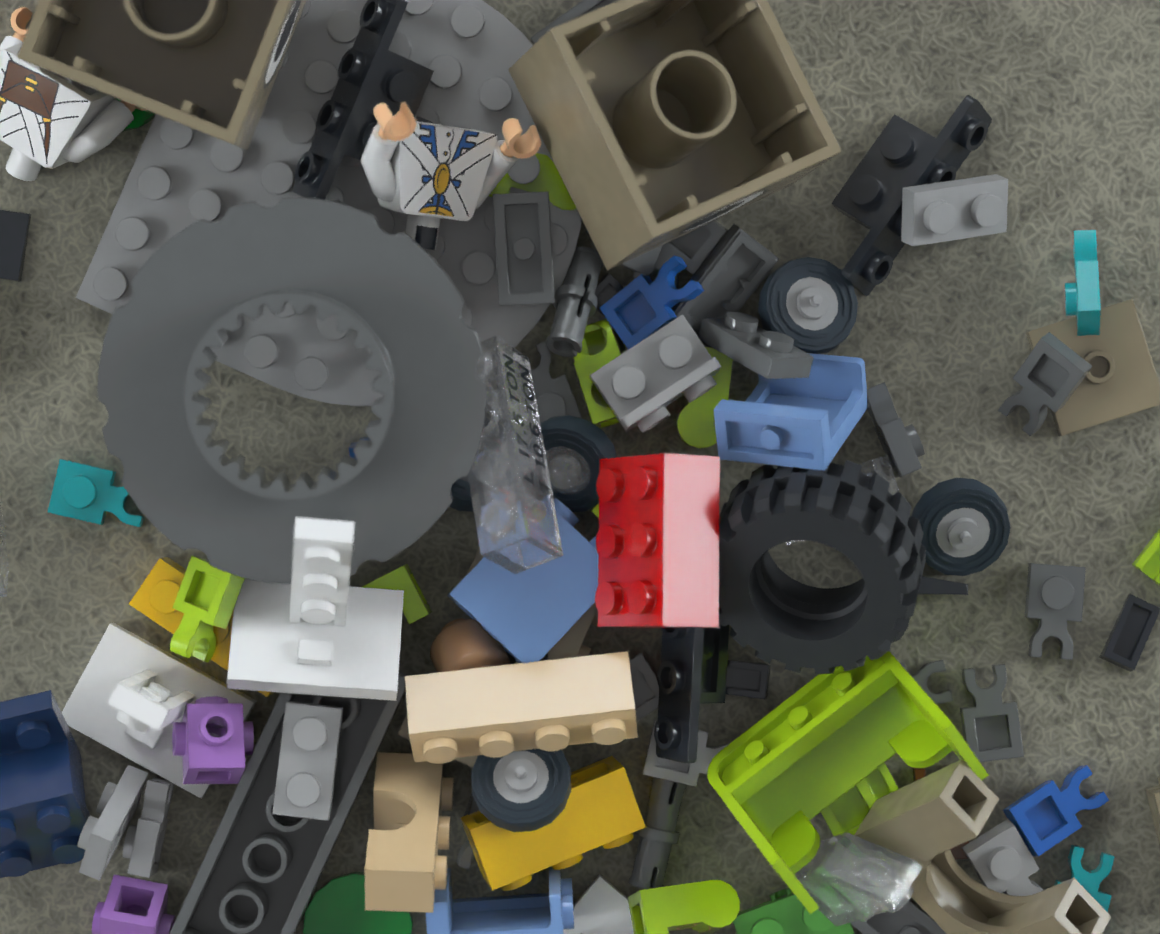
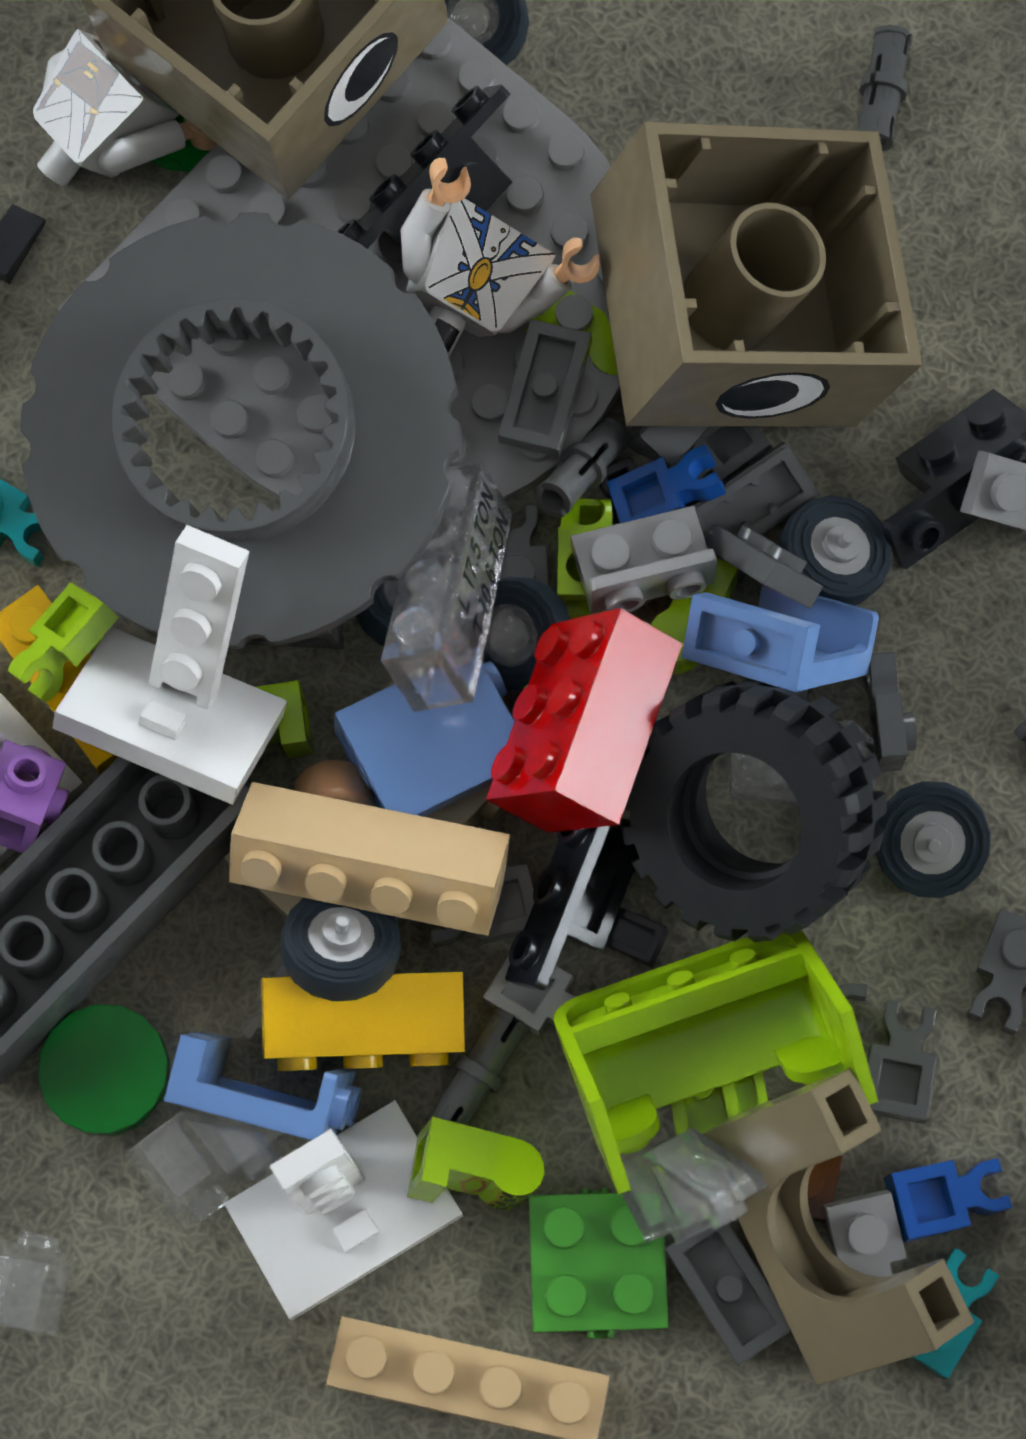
camera: 25 degrees right, 15 degrees down
(307, 760) = (112, 843): light grey plate -> none
(407, 834) = (182, 977): tan arch -> none
(938, 586) = (883, 900): black piece -> none

